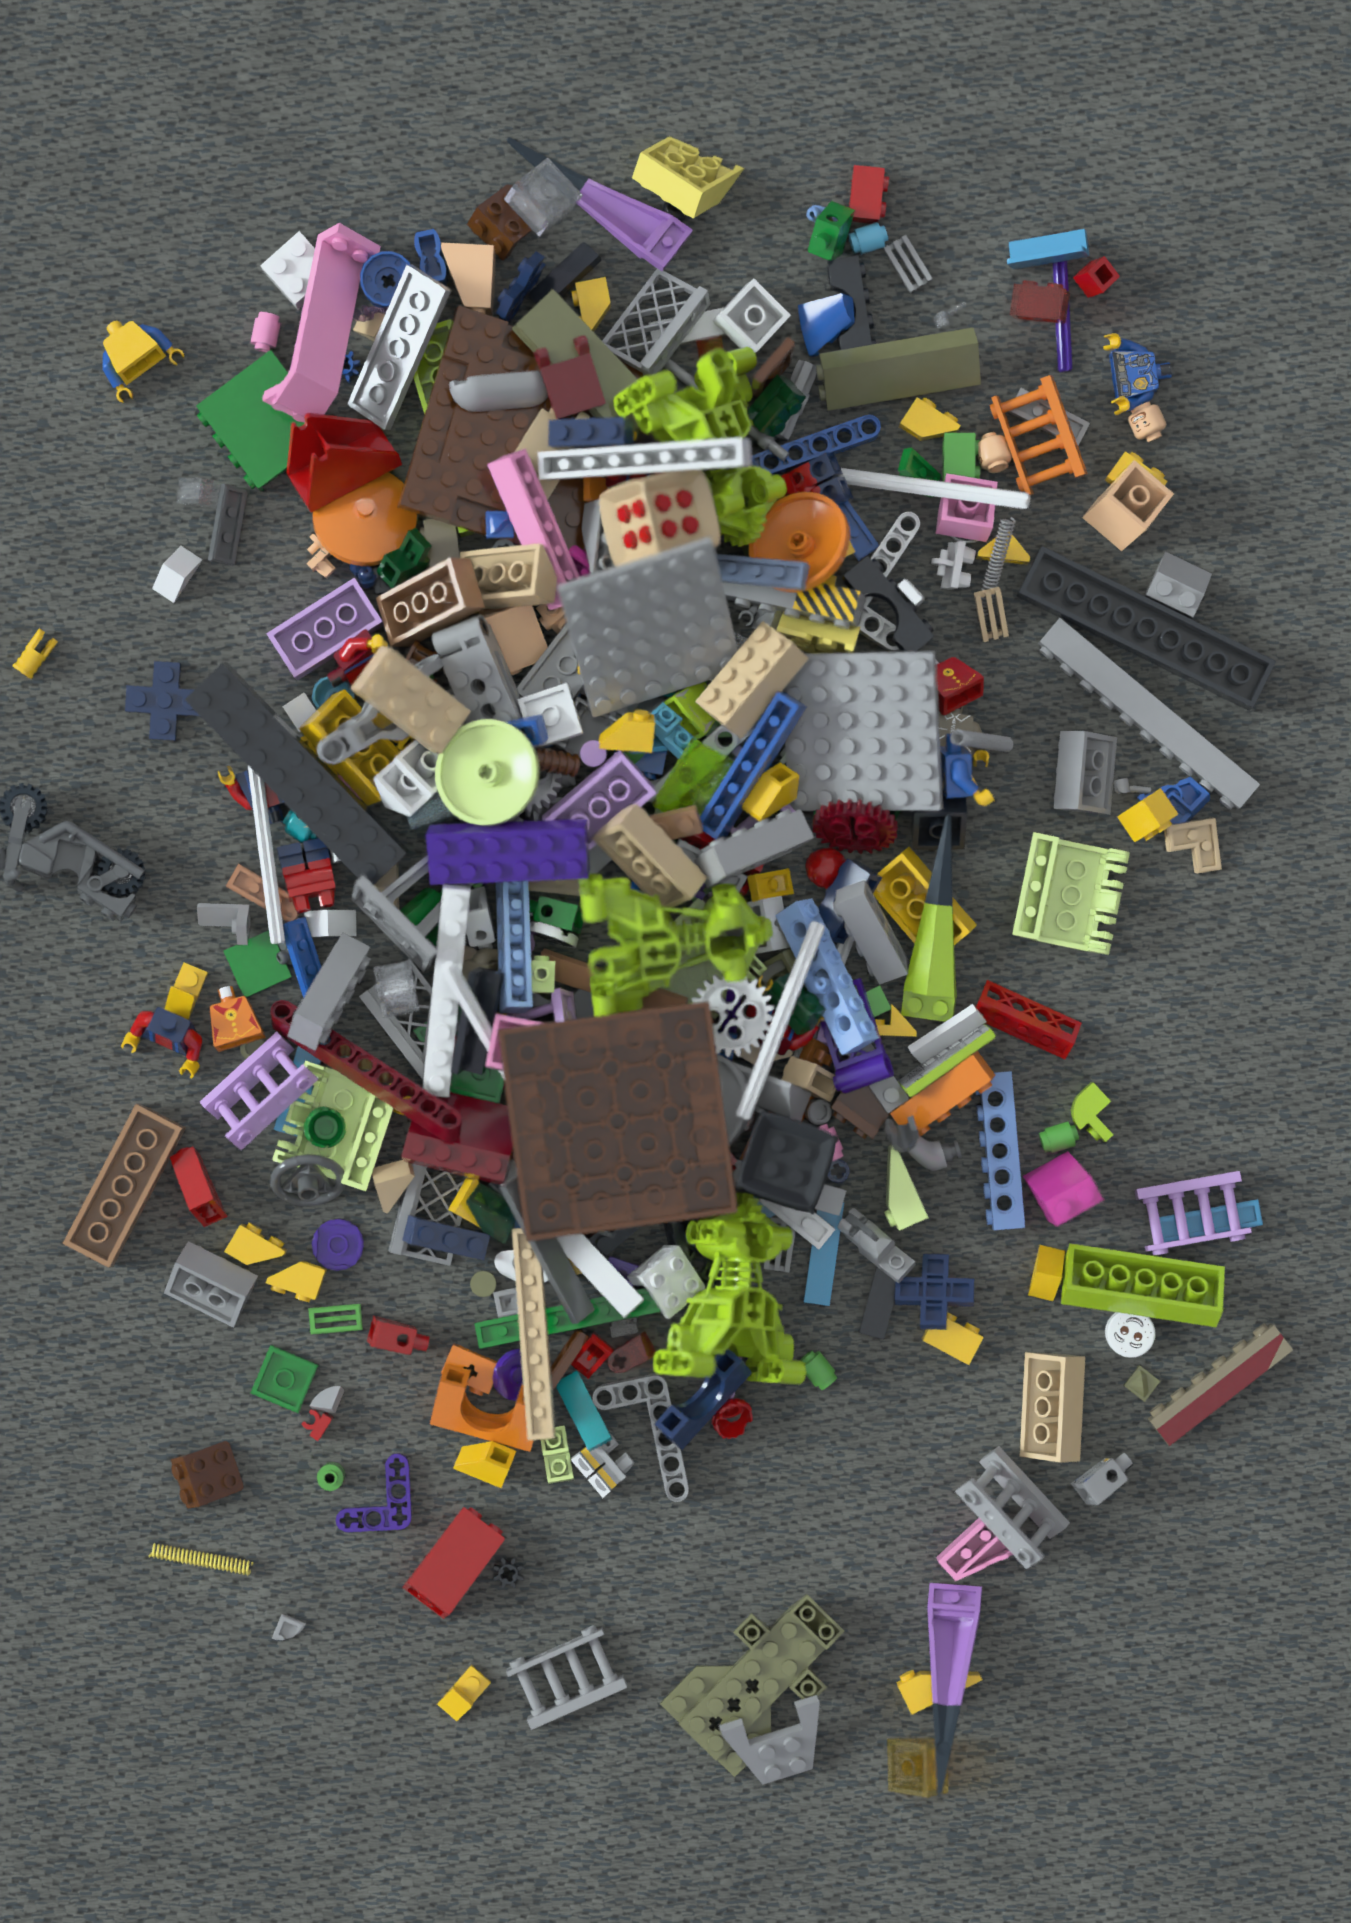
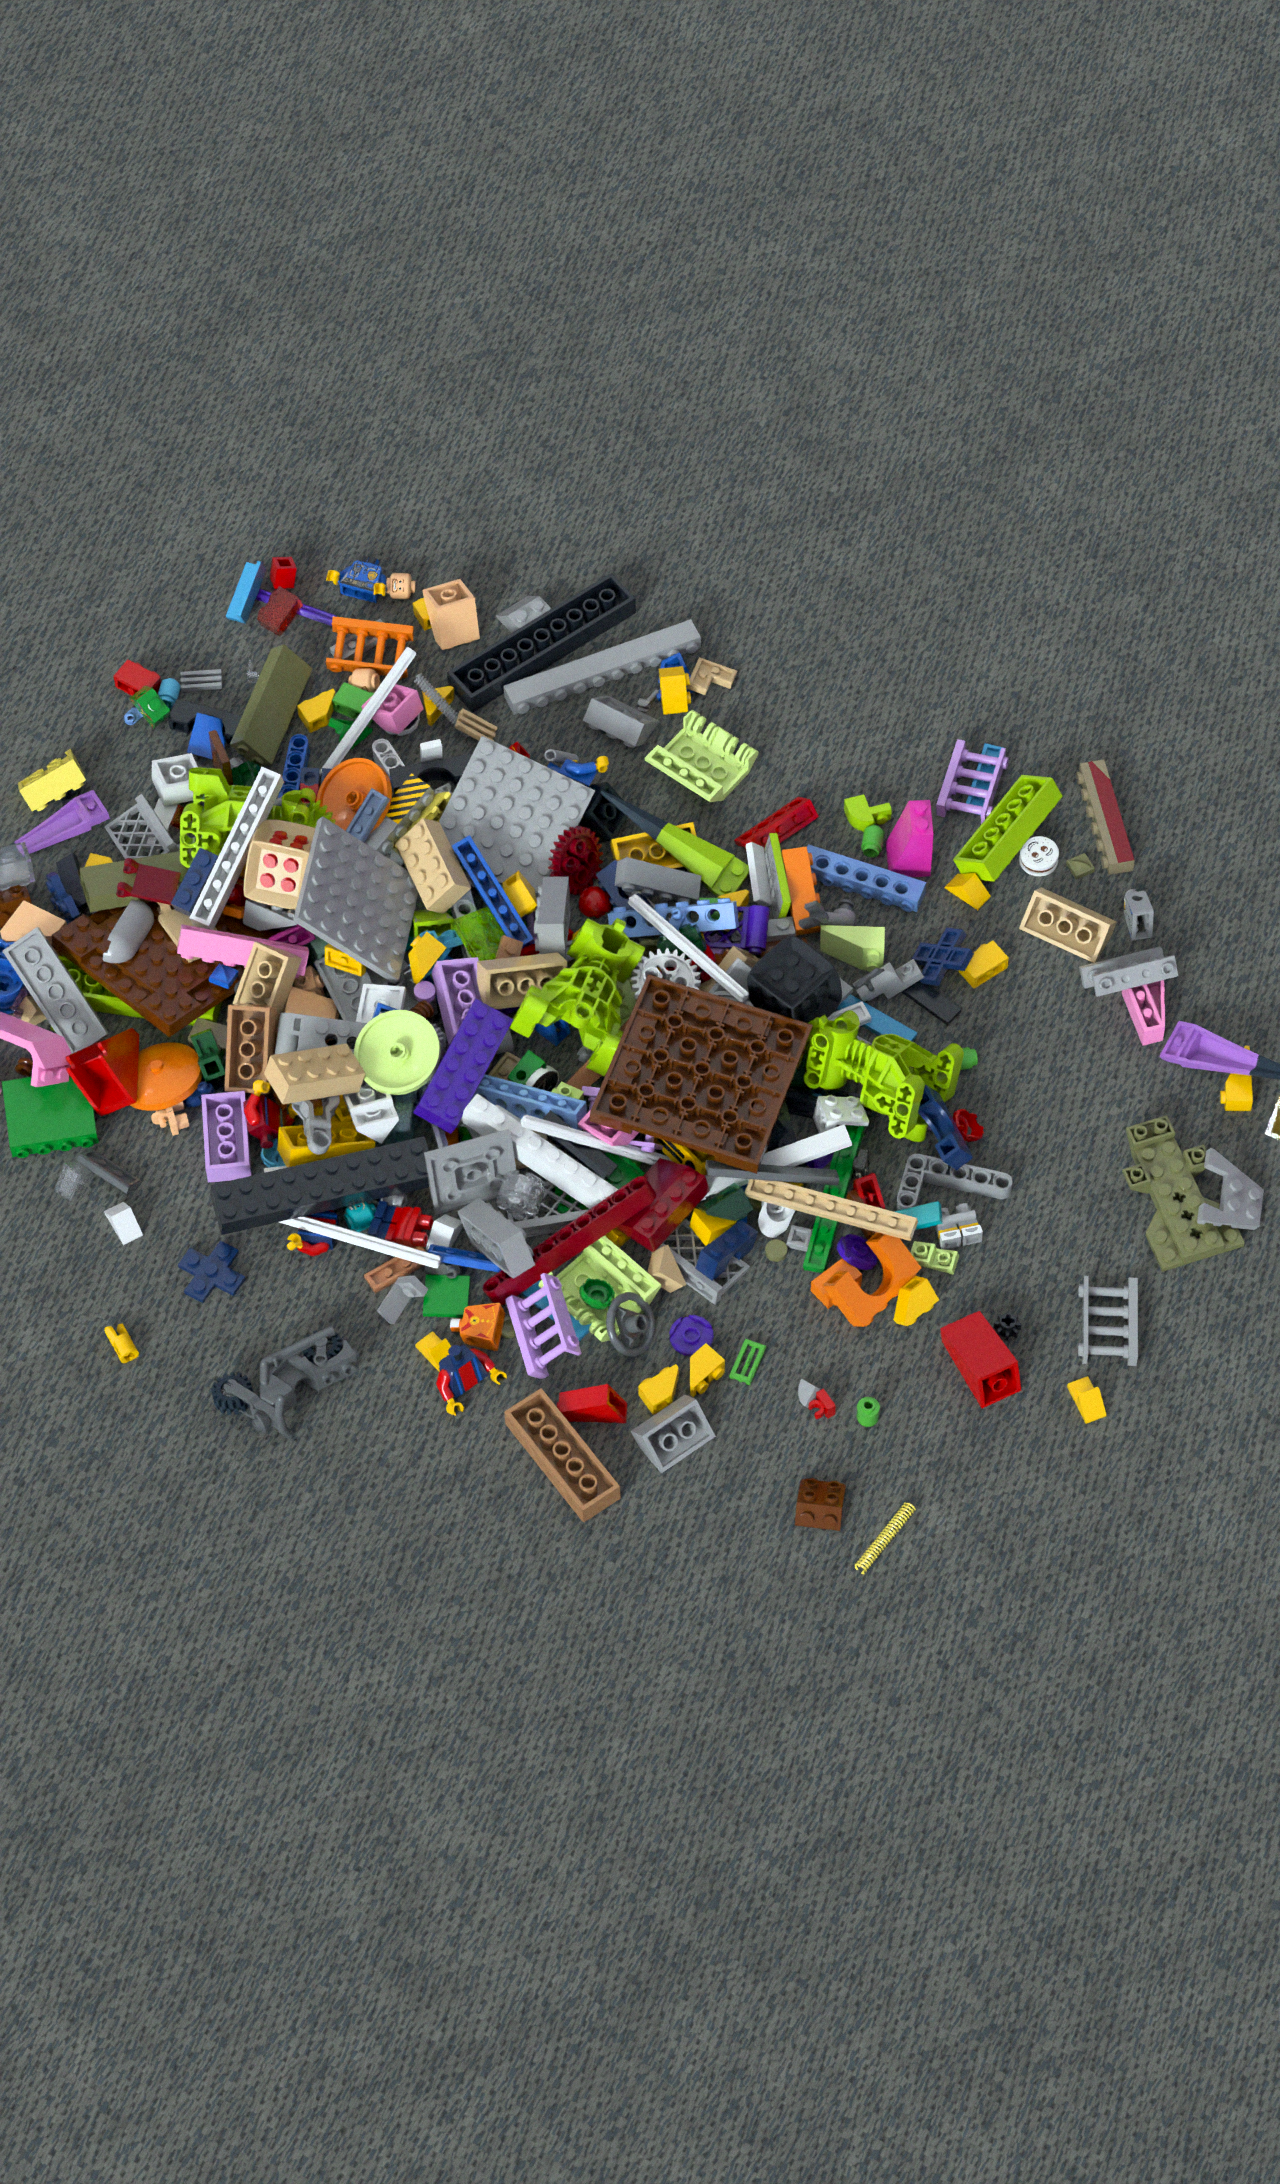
camera: 60 degrees left, 30 degrees down
(284, 1379) = (775, 1417): green tile -> none
(287, 1627) = (971, 1500): light grey tile -> none
(384, 1335) = (786, 1316): red torso -> none
(386, 1512) = (917, 1390): dark purple beam -> none
(636, 1352) = (884, 1170): clear red piece -> none
(951, 563) = (424, 732): white hips -> none

